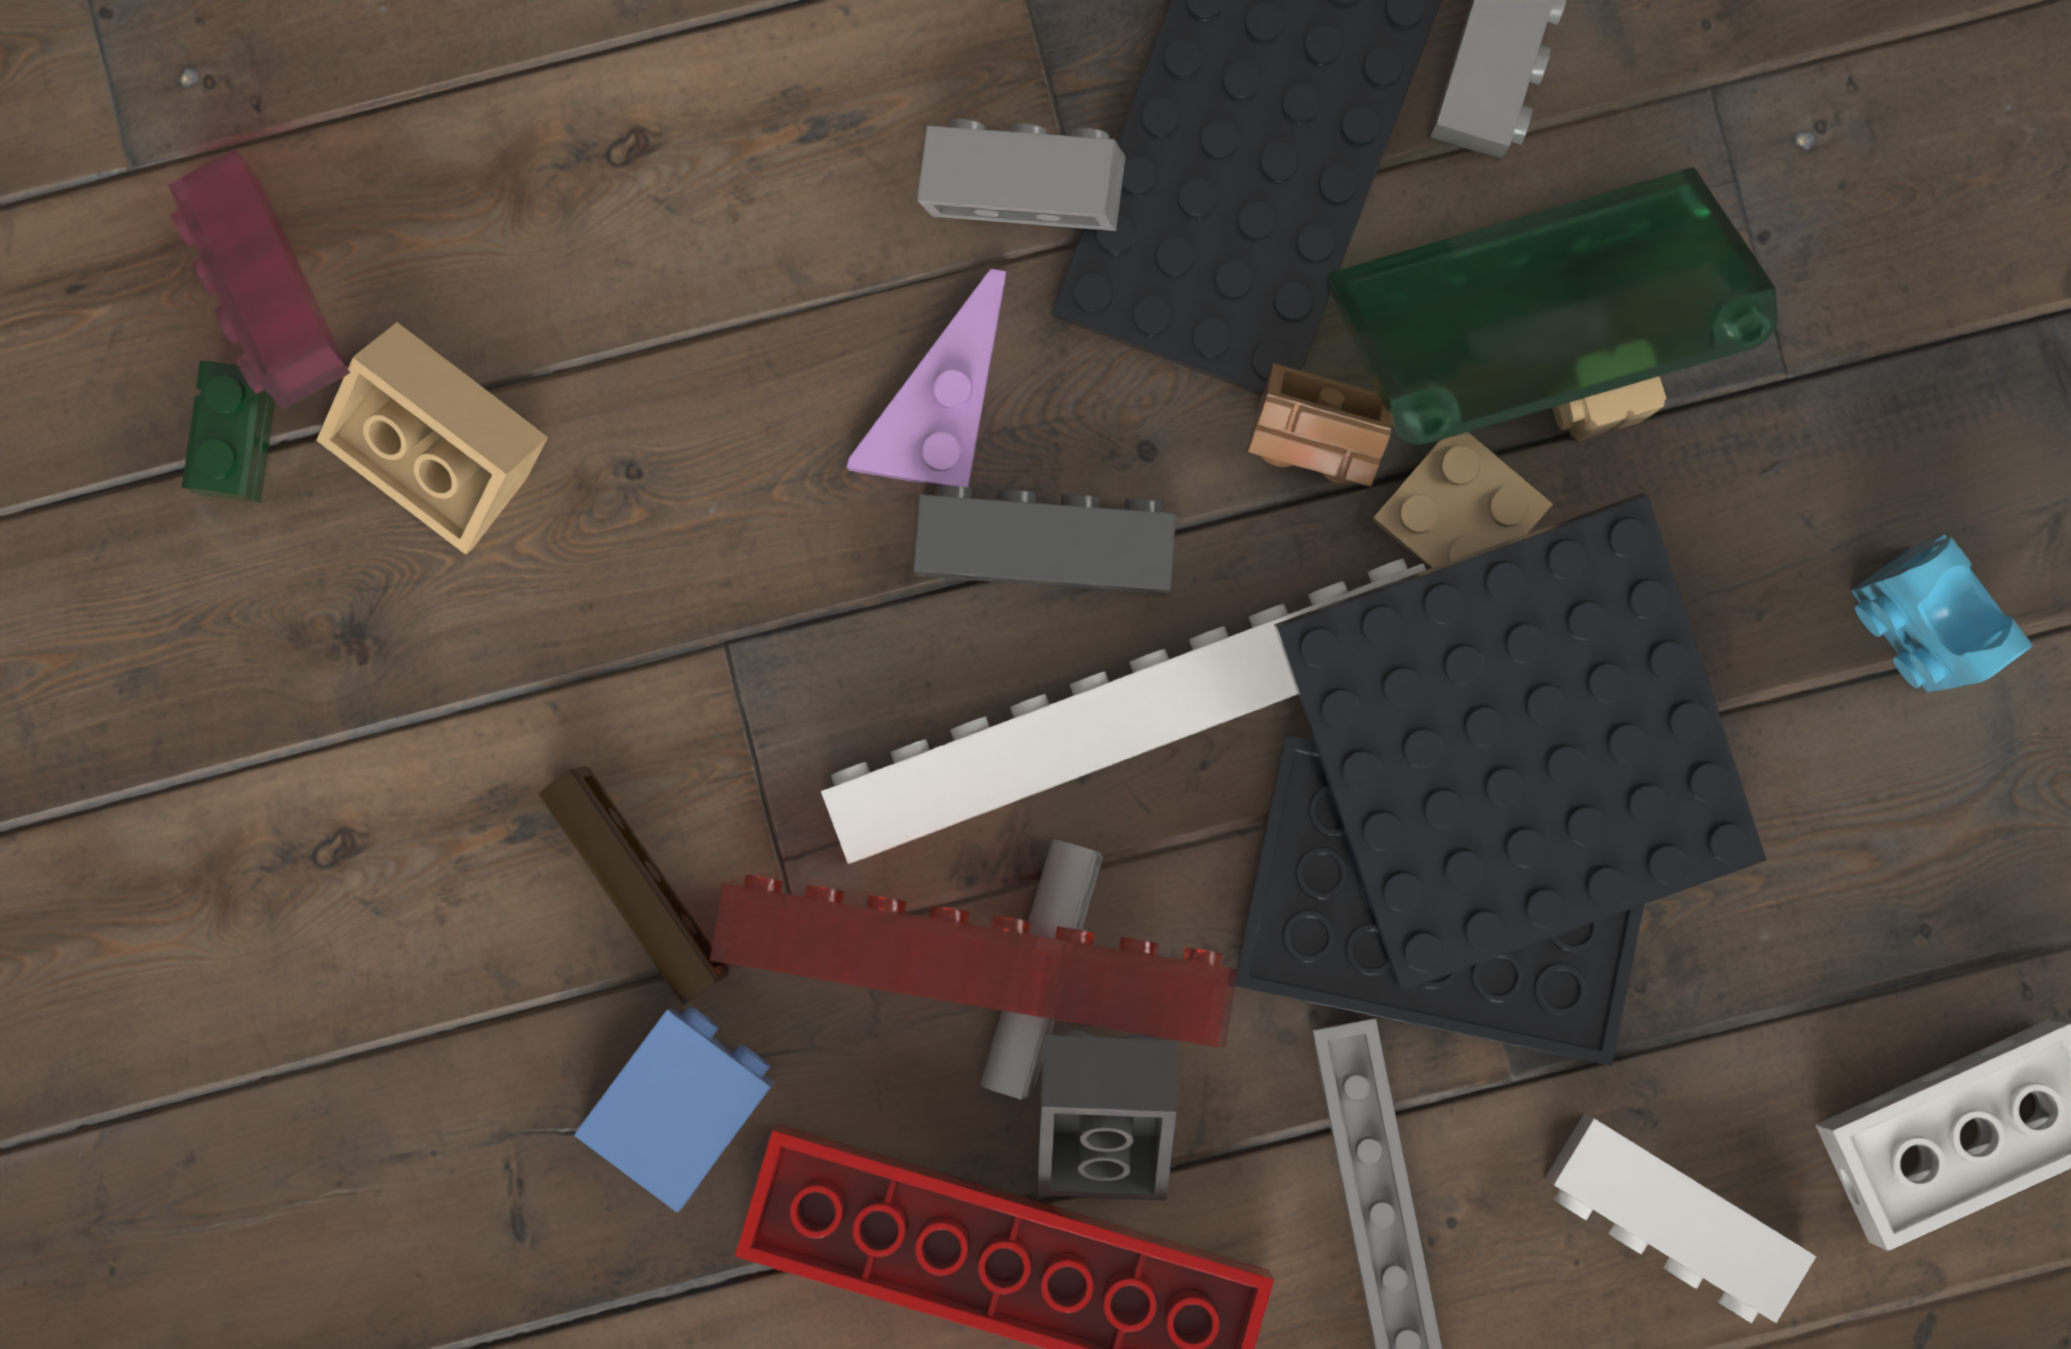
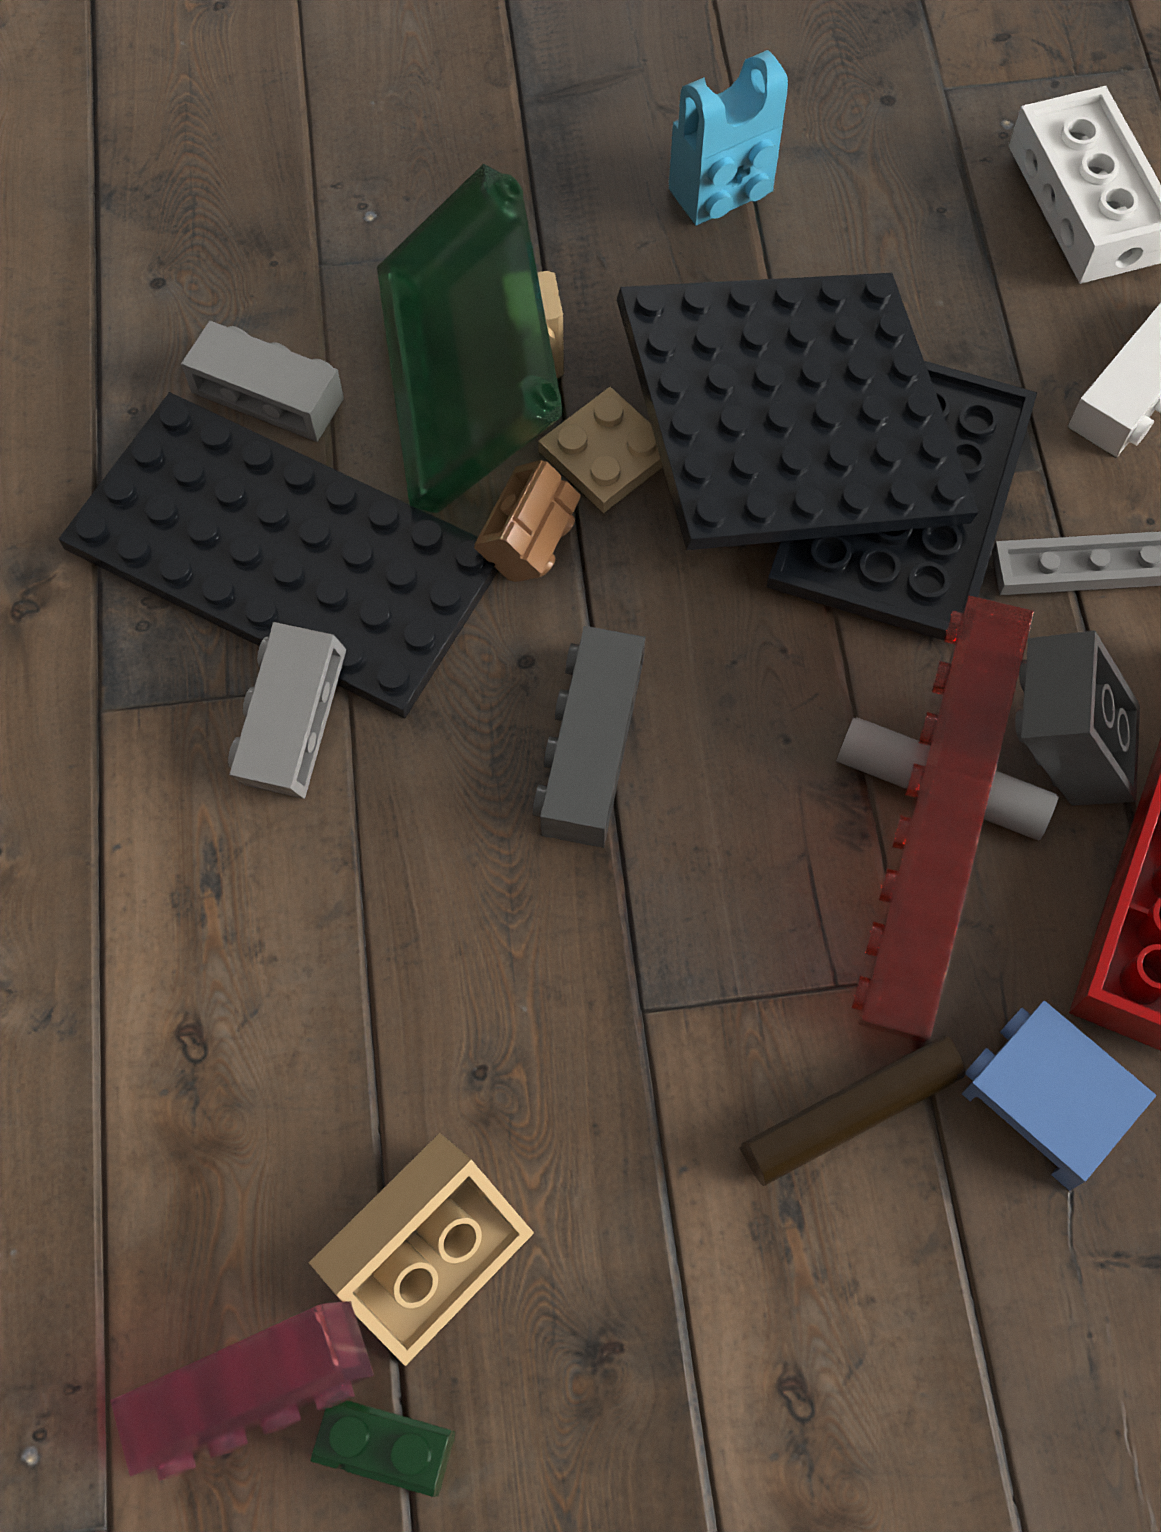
camera: 85 degrees left, 20 degrees down
(936, 416) = (476, 812): lavender wing -> none
(1073, 736) = (753, 725): white brick -> none

